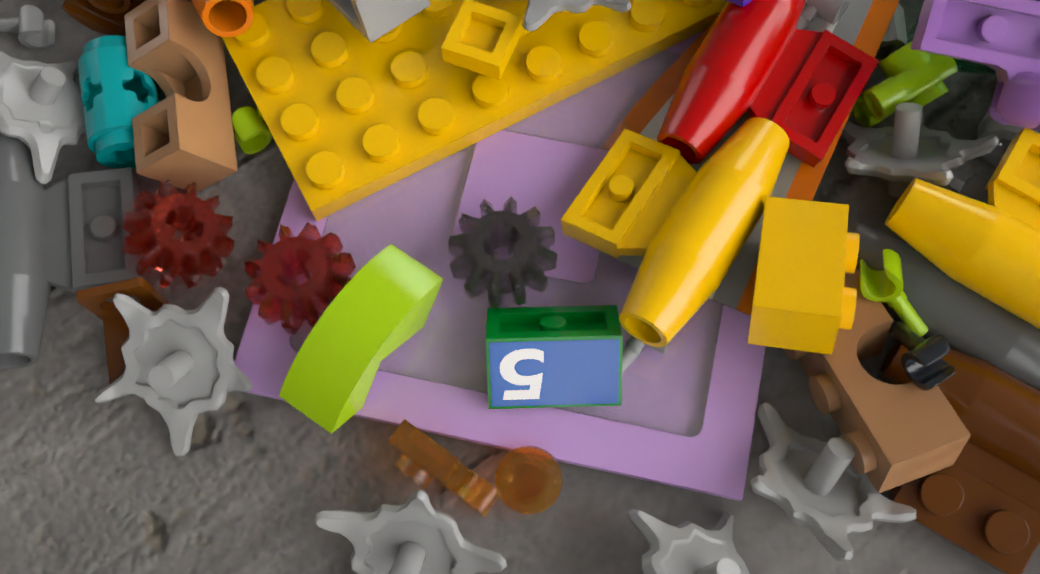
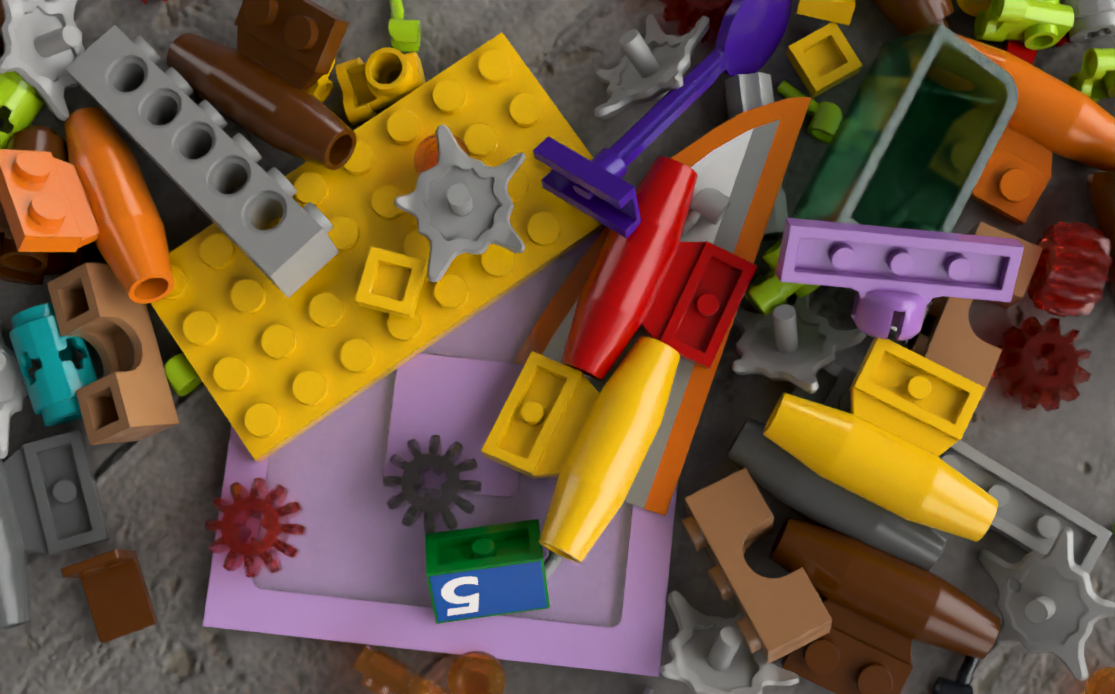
camera: 10 degrees left, 10 degrees up
(153, 234) = (124, 508): clear red gear -> none
(177, 362) = (158, 615): light grey piece -> none
(357, 330) = (317, 577): lime brick -> none
(802, 275) = (690, 487): yellow brick -> none
(888, 288) = (764, 485): lime hand -> none
(924, 359) = (797, 558): black hand -> none

